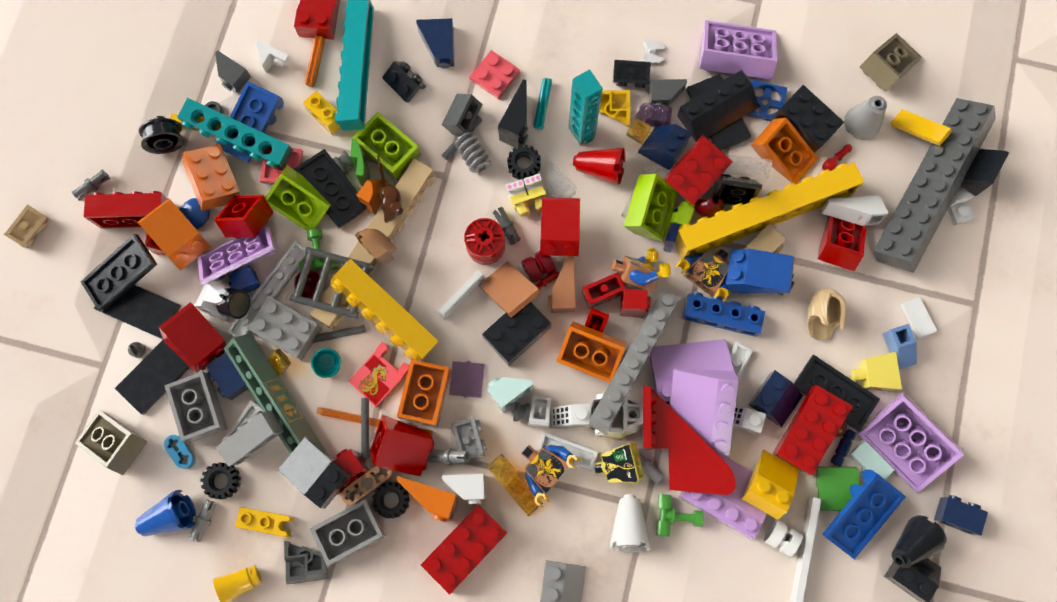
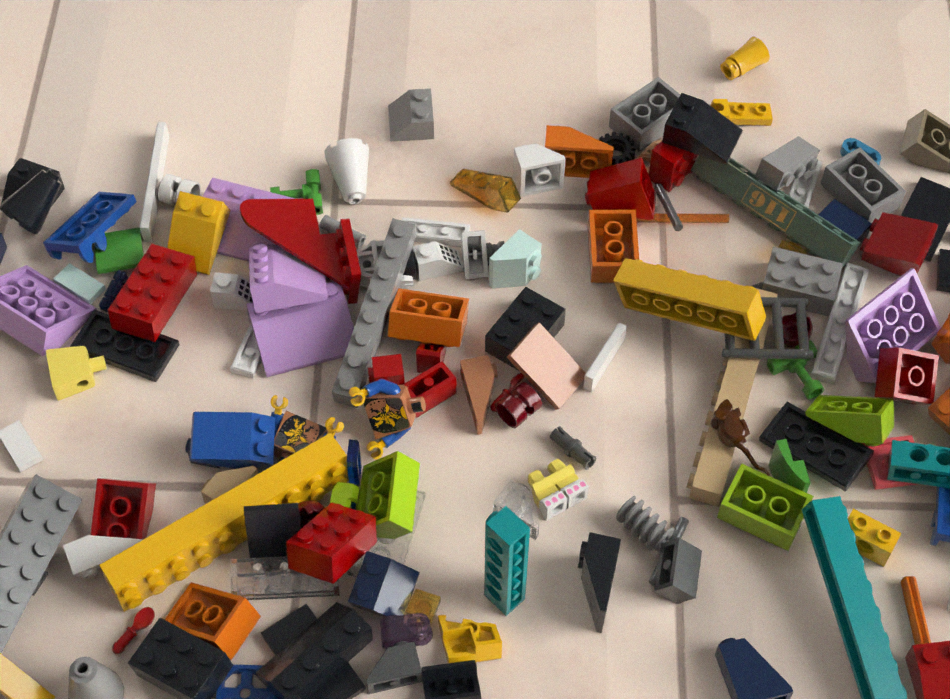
camera: 165 degrees right, 20 degrees down
(168, 515) = (839, 95): blue cone -> none
(202, 520) = (805, 103): light grey pin -> none
(212, 472) = (805, 127): black tyre -> none
(223, 302) = (873, 278): piece -> none
(303, 564) = (689, 84): dark grey slope -> none
(326, 362) = (737, 255): teal hair -> none
(344, 161) = (818, 480): dark grey wheel -> none
(370, 194) = (758, 436): orange slope -> none
(377, 244) = (728, 364): medium nougat brick -> none
(378, 376) = (676, 254): flag -> none
(403, 80) = (777, 611): black bracket -> none
(449, 456) = (564, 196): light grey pin -> none
(464, 549) = (521, 122): red brick -> none
(467, 379) = (569, 279): clear purple piece -> none
(468, 438) = (548, 218): light grey bracket -> none
(493, 247) = (594, 414): red wheel -> none
(494, 74) = (651, 650): coral plate -> none
(523, 152) = (571, 517): black tyre -> none
(542, 103) = (570, 621): teal axle -> none
(546, 468) = (454, 201): torso -> none
(560, 226) = (501, 438): red slope -> none
(602, 164) = (458, 542): red cone -> none
(621, 464) = (368, 219): torso -> none
(723, 314) = (255, 394): blue brick -> none
(776, 398) = (200, 322): dark blue slope -> none
(825, 313) = (144, 421): tan hair -> none
(903, 343) = (46, 404): medium blue slope -> none

